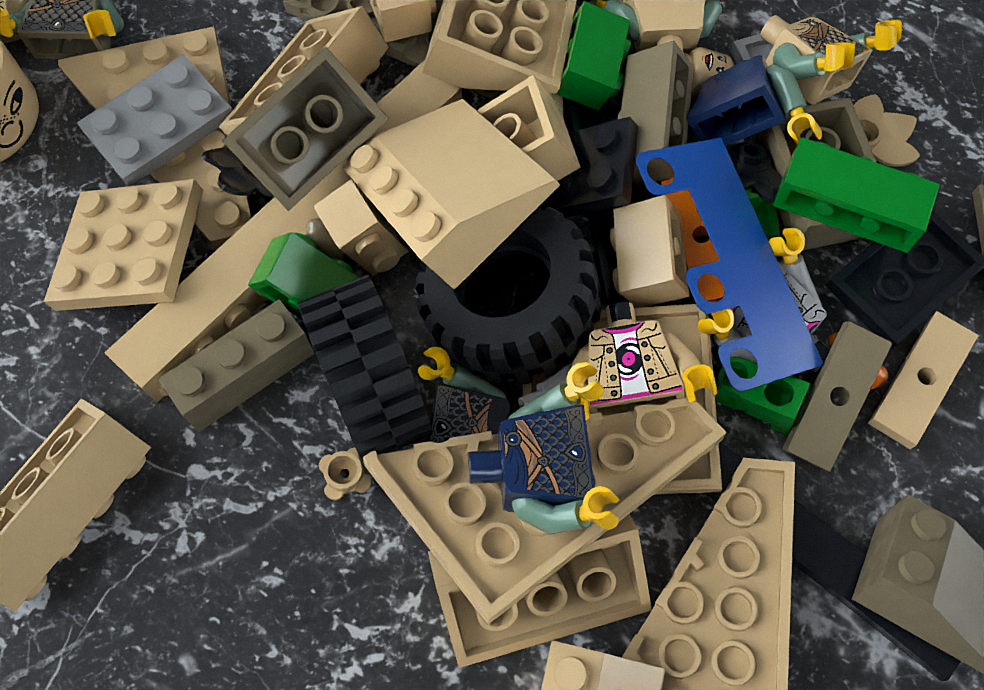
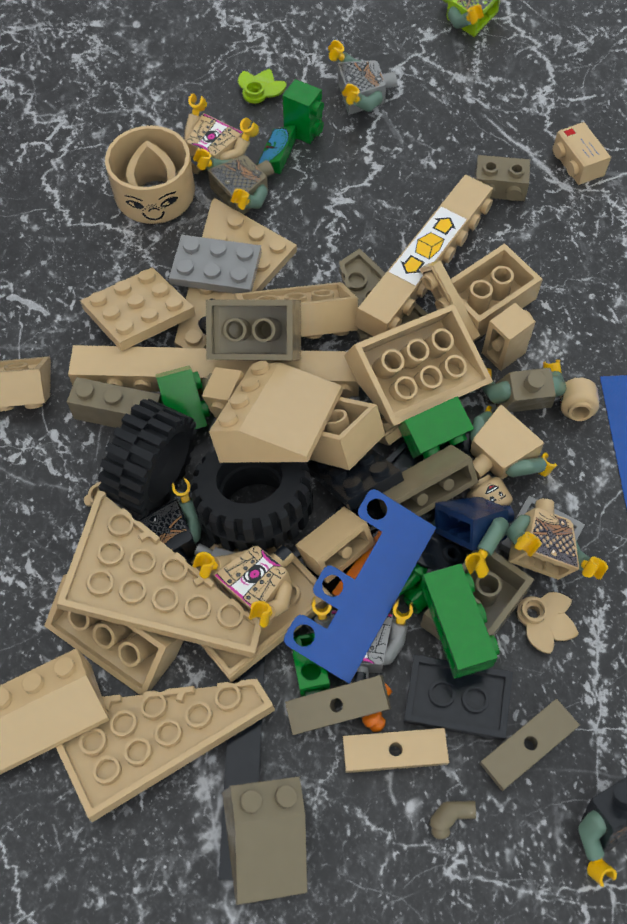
camera: 50 degrees right, 5 degrees down
(547, 460) = (156, 569): torso -> none

